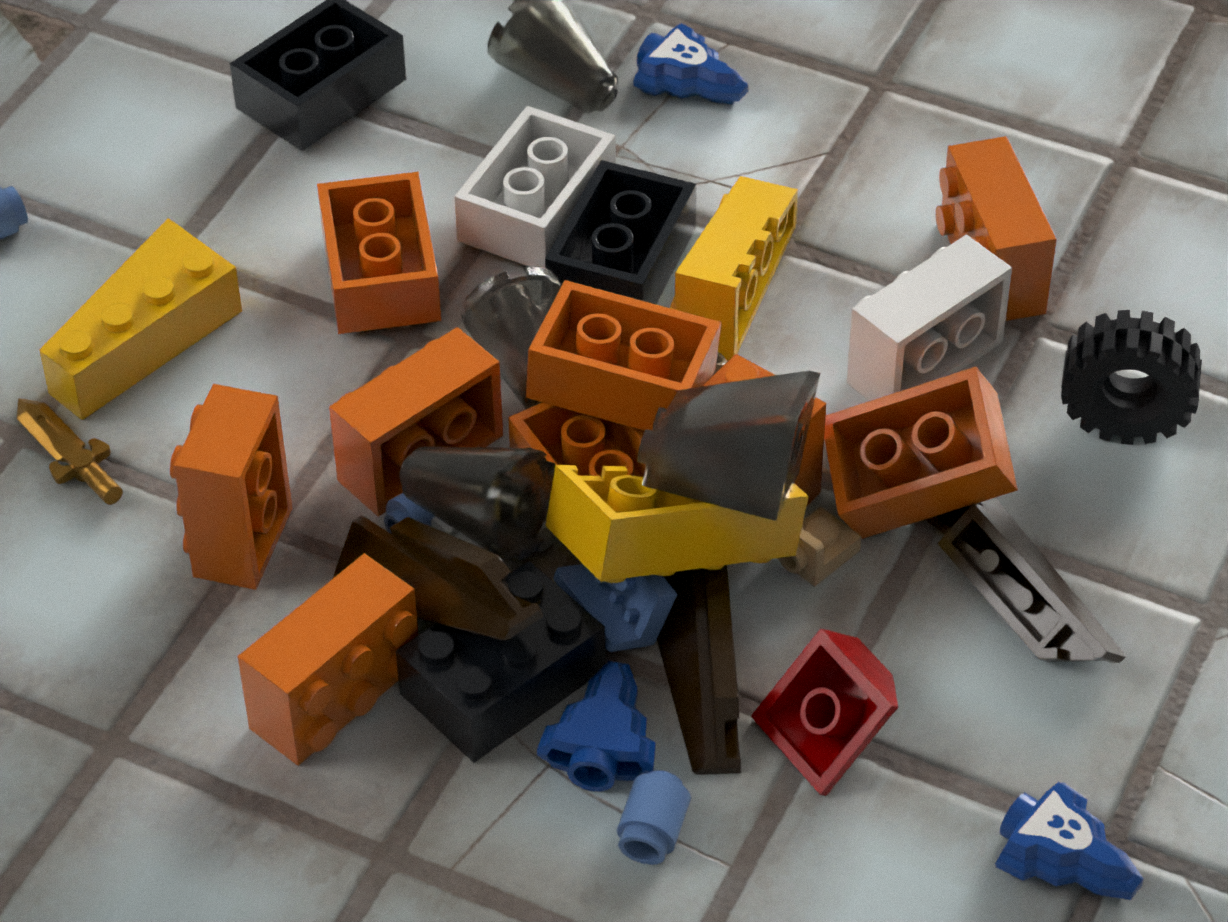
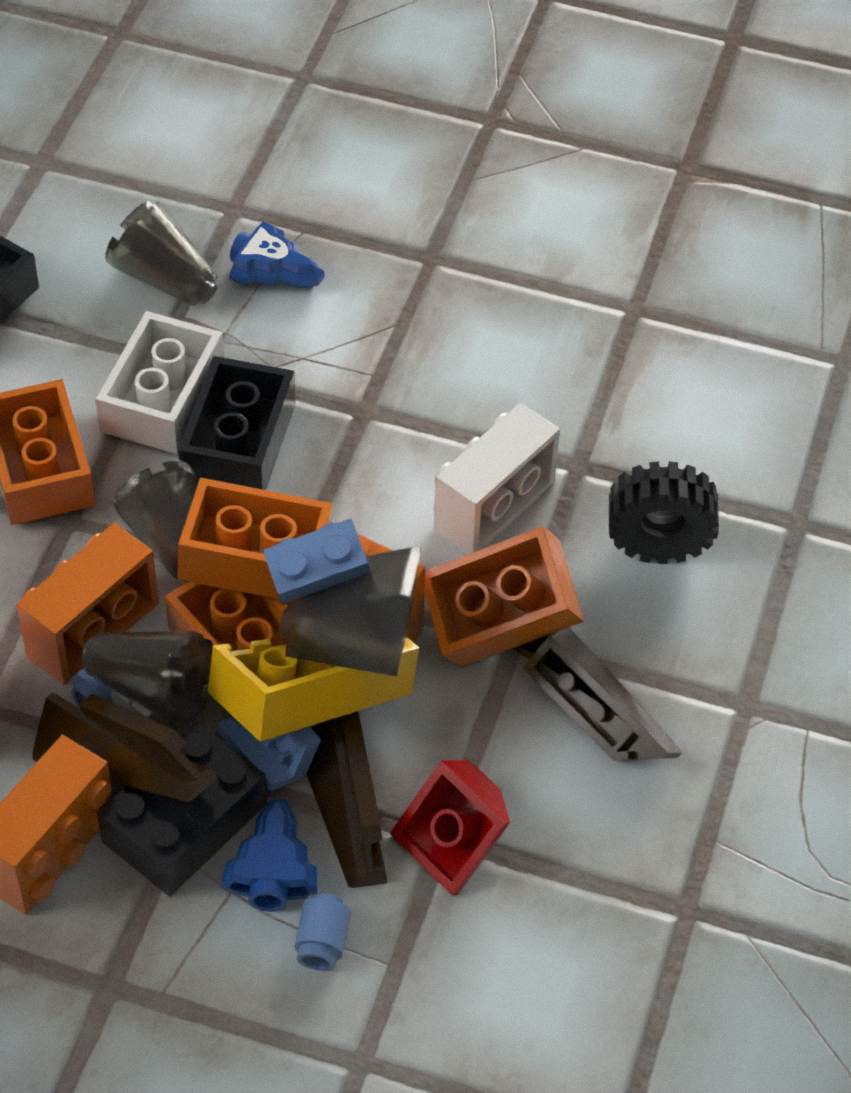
camera: 10 degrees left, 5 degrees up
(691, 375) = (316, 560): none -> medium blue bracket
(737, 258) = (332, 433): yellow wedge -> none
(822, 547) = (432, 679): tan bracket -> none
(998, 209) = (539, 373): orange brick -> none
(1064, 845) = (651, 921): blue rock -> none

